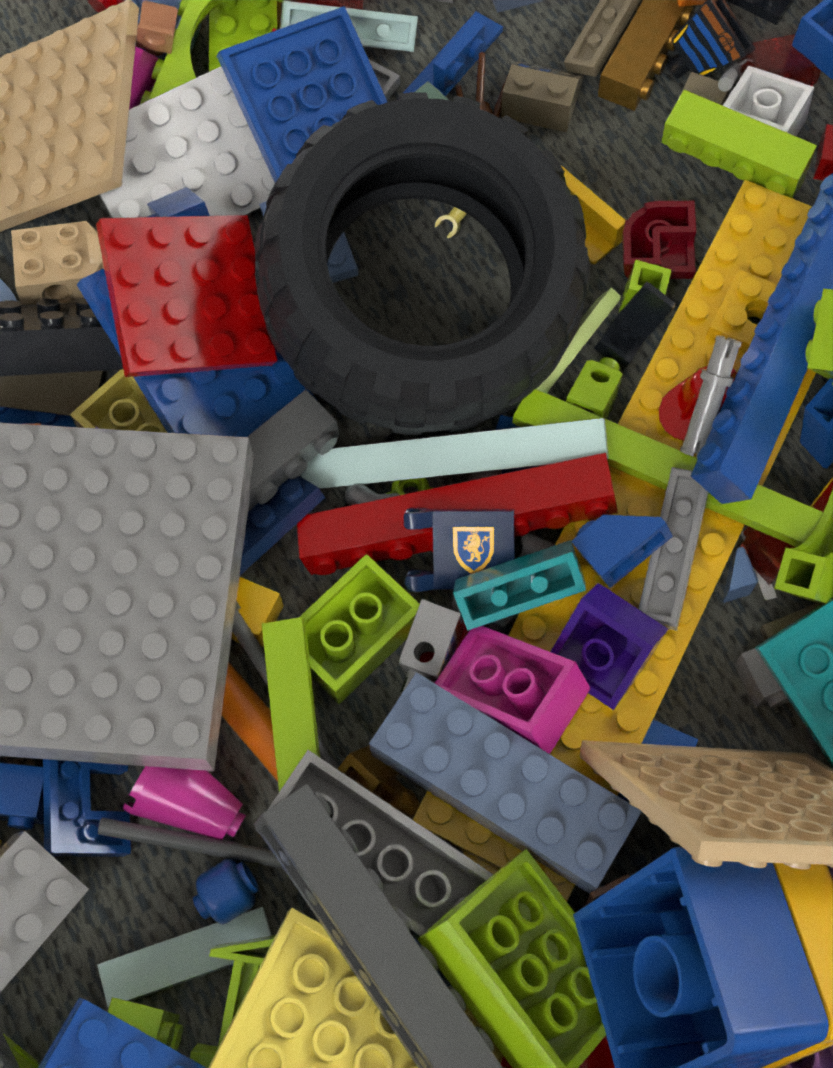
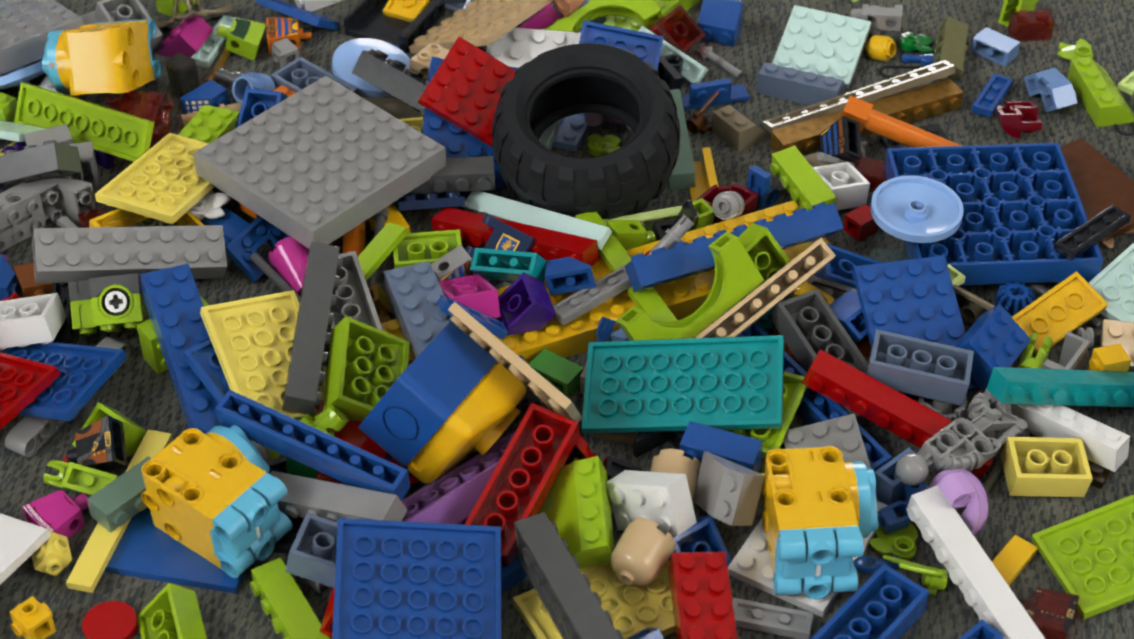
camera: 35 degrees right, 25 degrees down
(388, 65) = (670, 70): none -> black plate
(390, 240) = (600, 145): none -> lime plate
(574, 735) = (494, 326): none -> blue tile
(677, 180) = (759, 182): none -> blue plate
(683, 250) = (728, 205): none -> light grey head
(713, 706) = (558, 371): none -> bright green brick
(722, 597) = (604, 329): none -> blue piece

